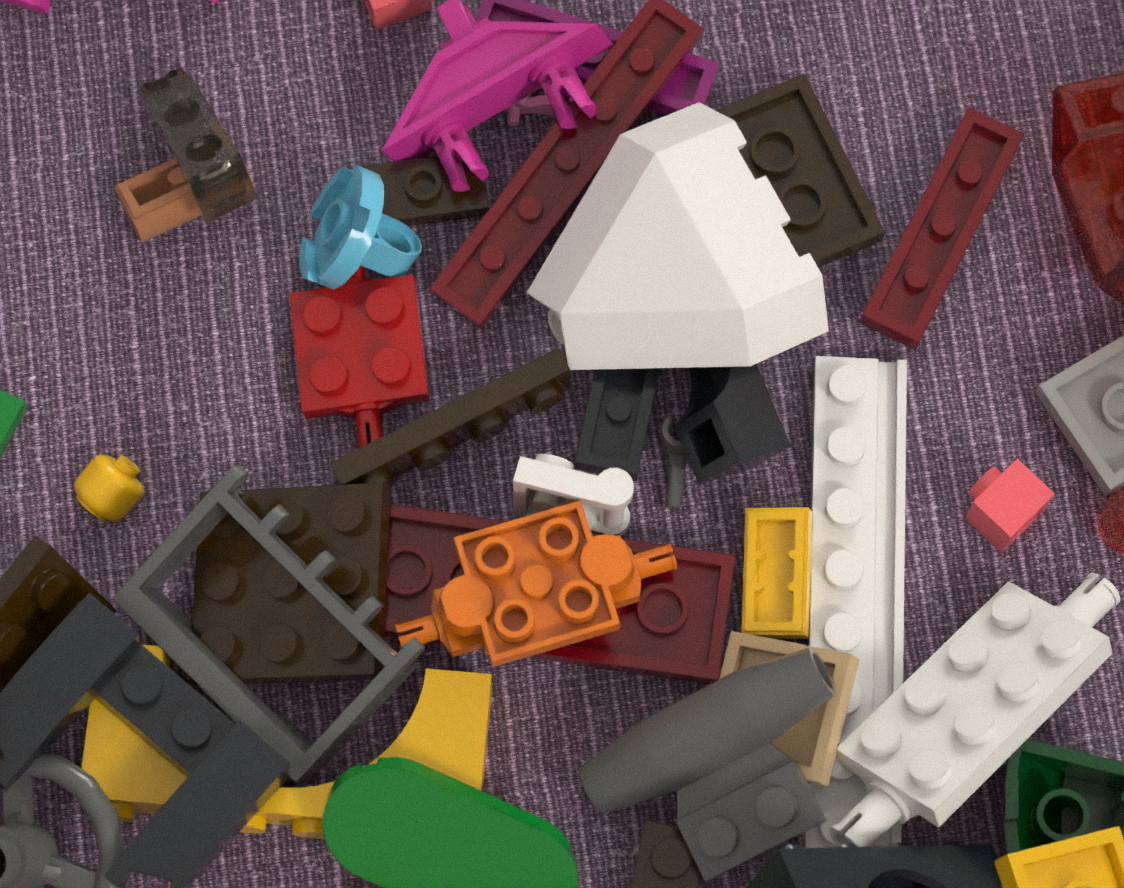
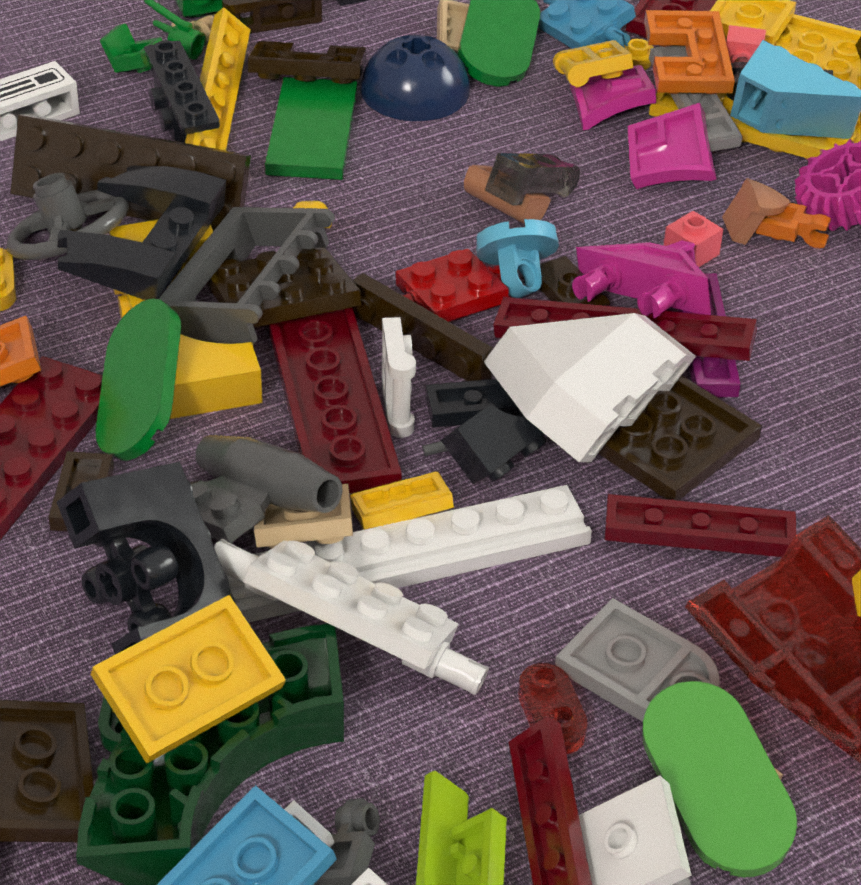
camera: 70 degrees right, 30 degrees down
(535, 587) = (327, 367): orange piece -> none
(1007, 503) = (513, 606): coral plate -> none

